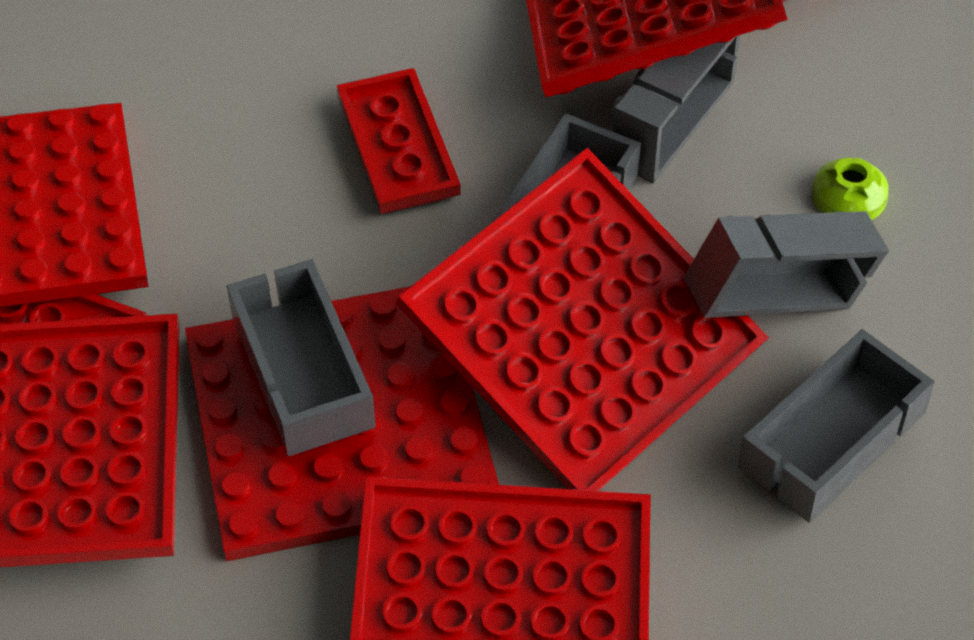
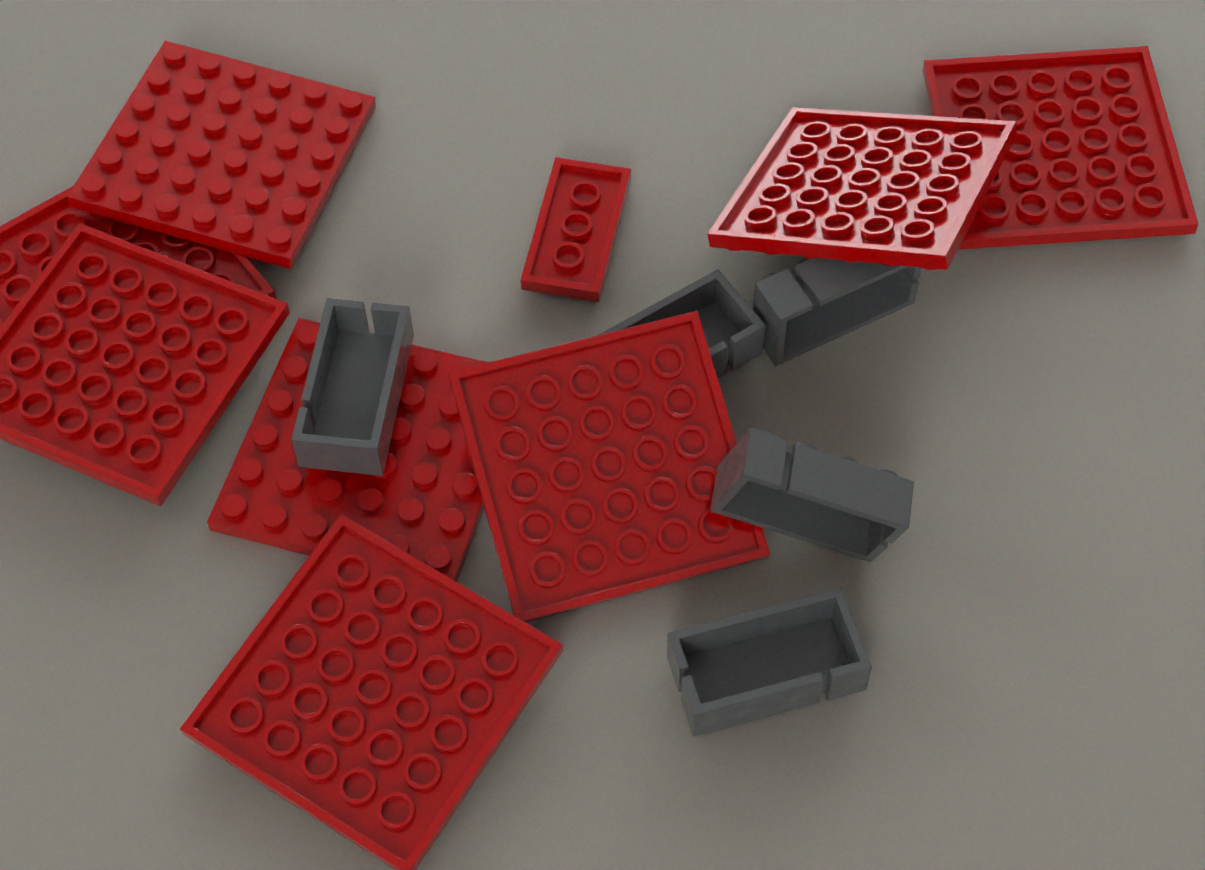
camera: 30 degrees right, 5 degrees up
(835, 194) = (944, 467): lime piece -> none

